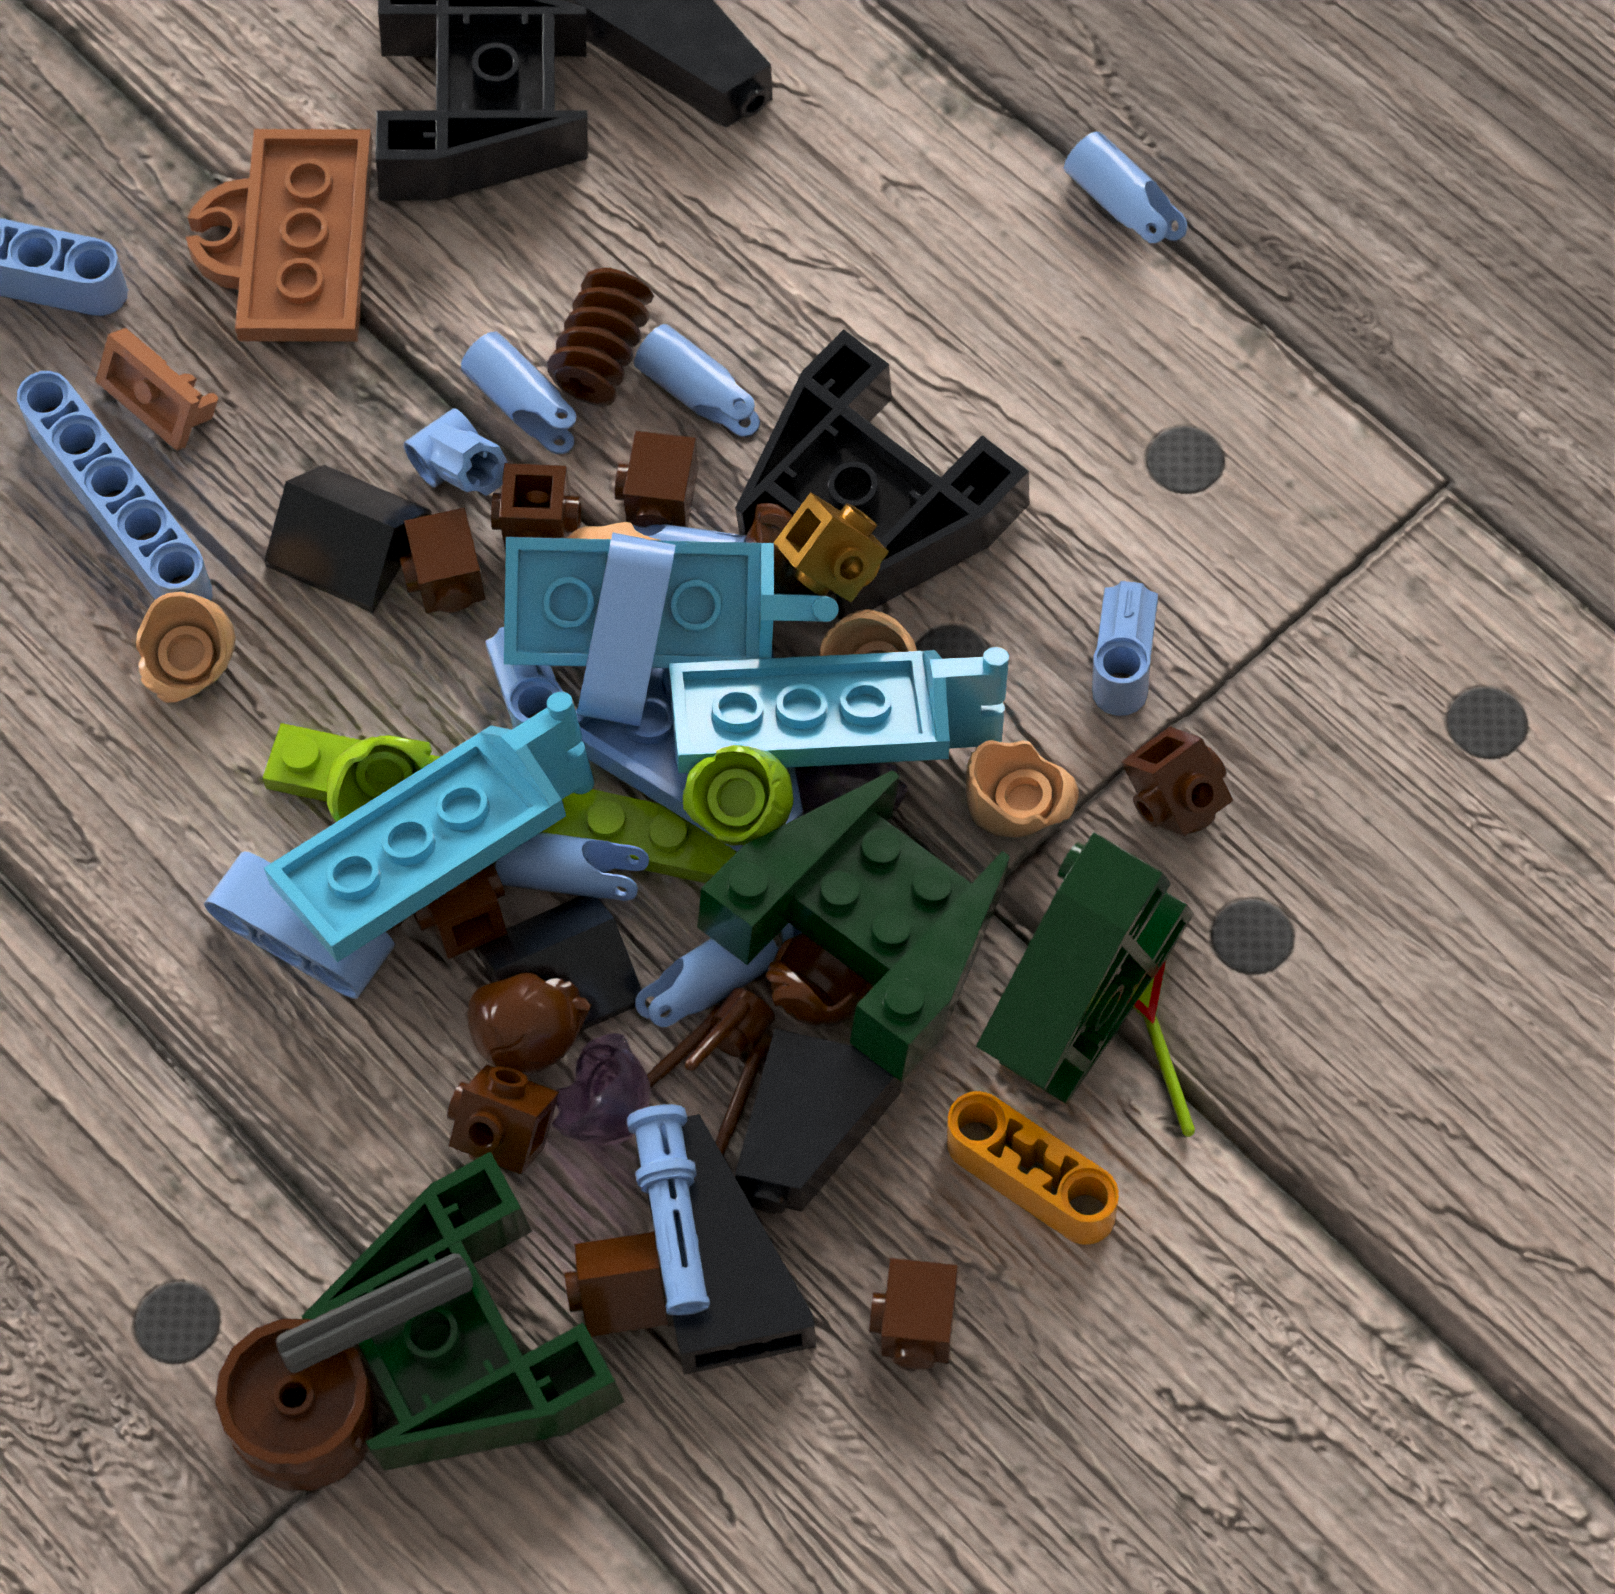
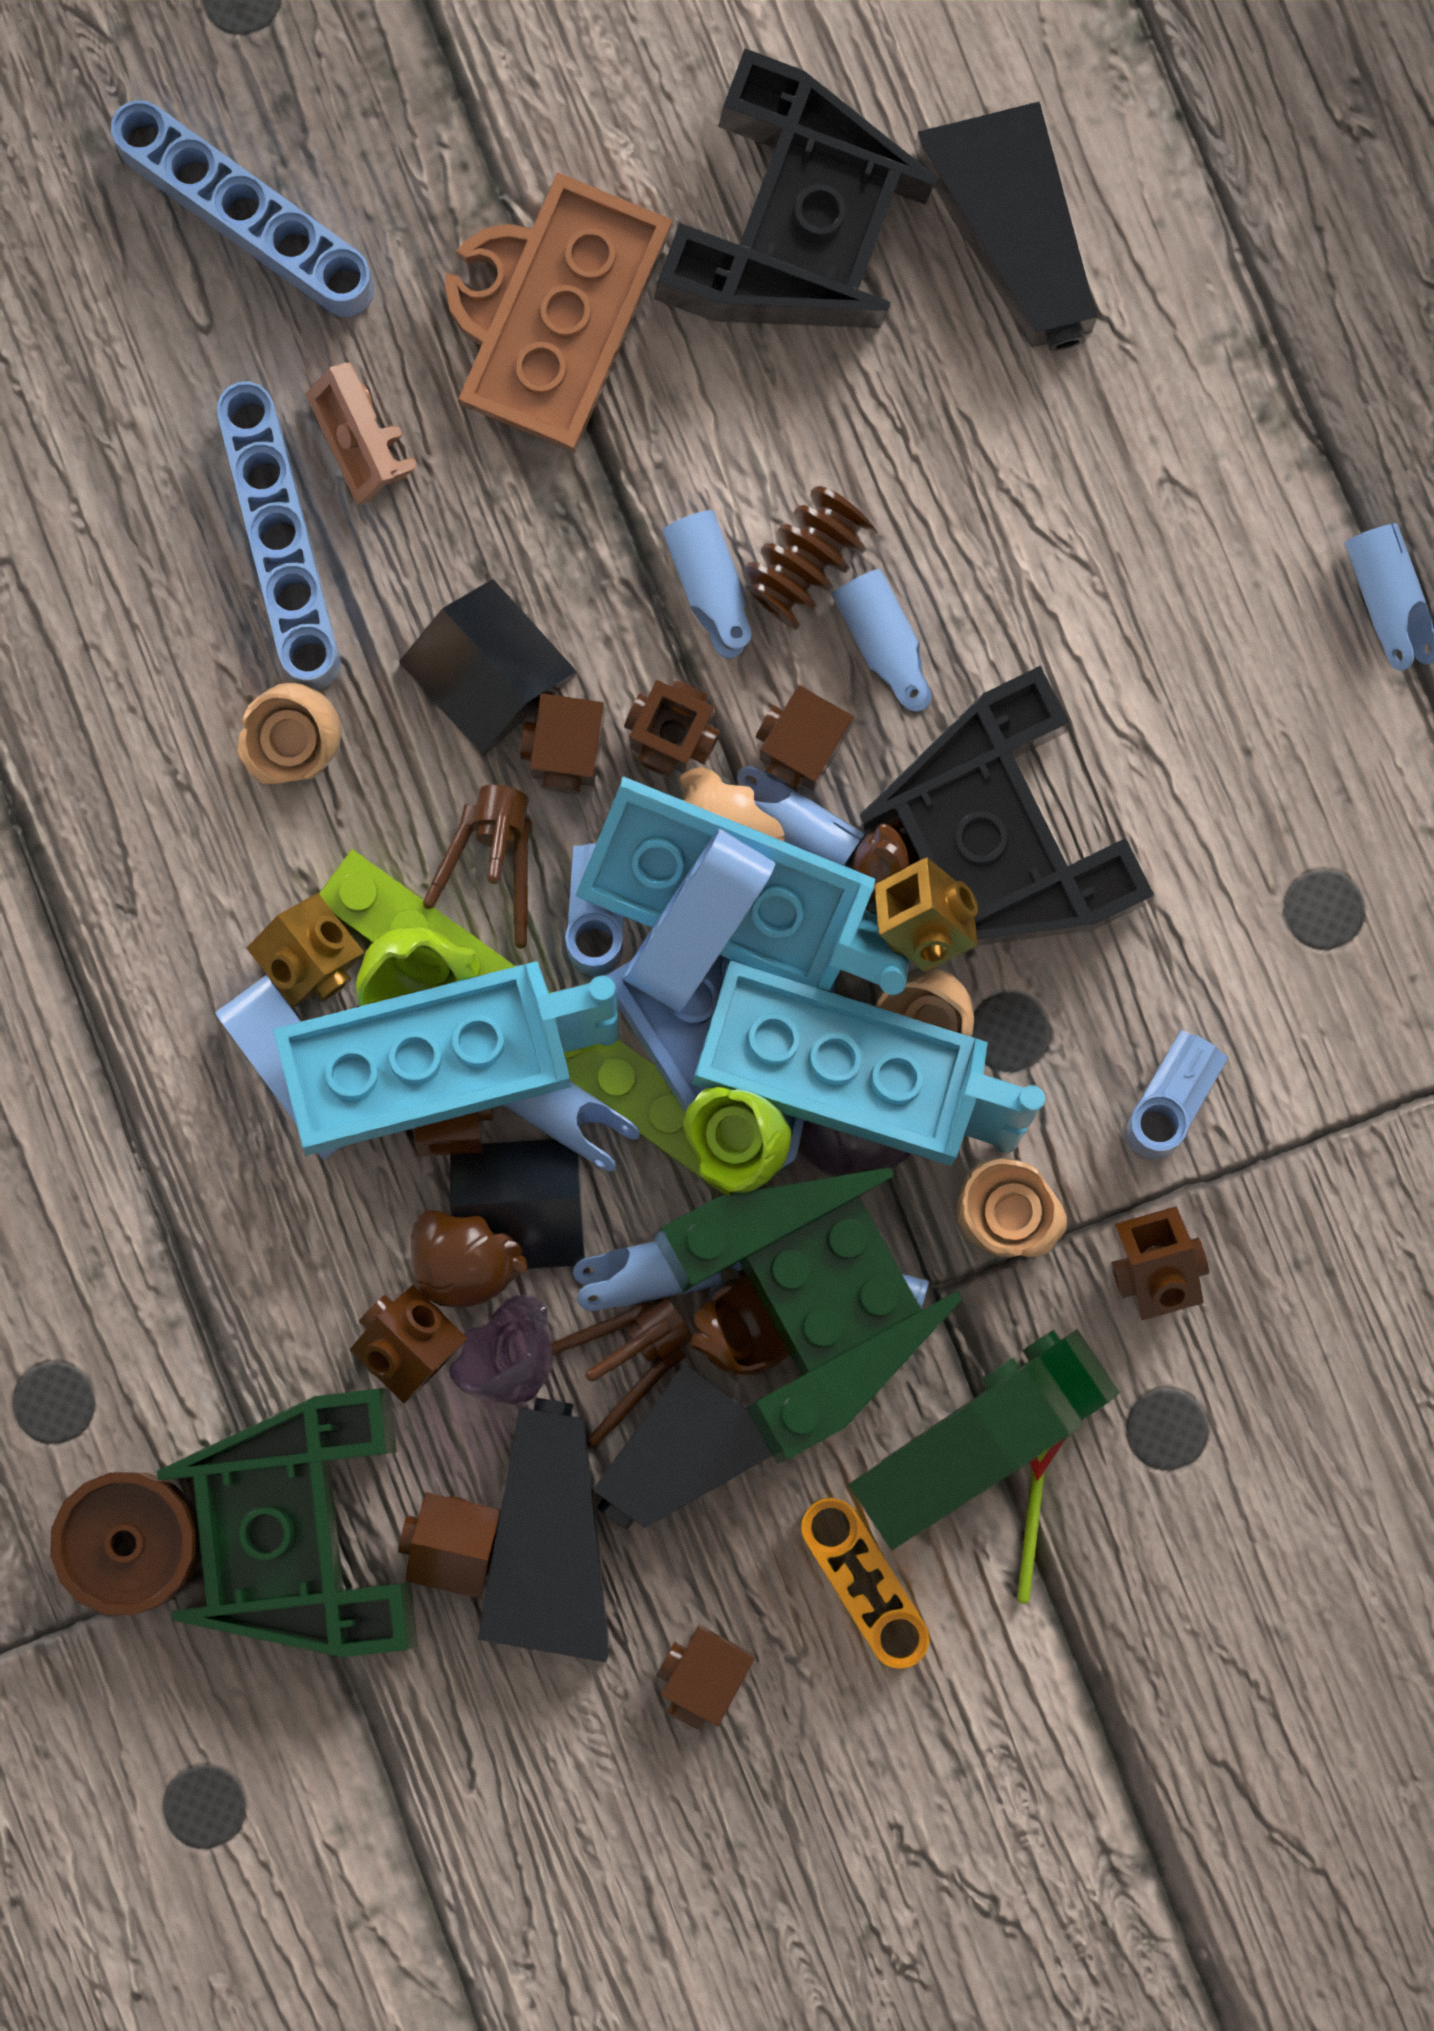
camera: 20 degrees right, 20 degrees up
(269, 813) = (306, 952): none -> pearl gold brick
(374, 1312) = (218, 1506): dark grey axle -> none
(410, 652) = (499, 824): none -> reddish brown plant
(456, 454) = (619, 632): light blue piece -> none
(666, 1178) = (528, 1467): light blue pin -> none

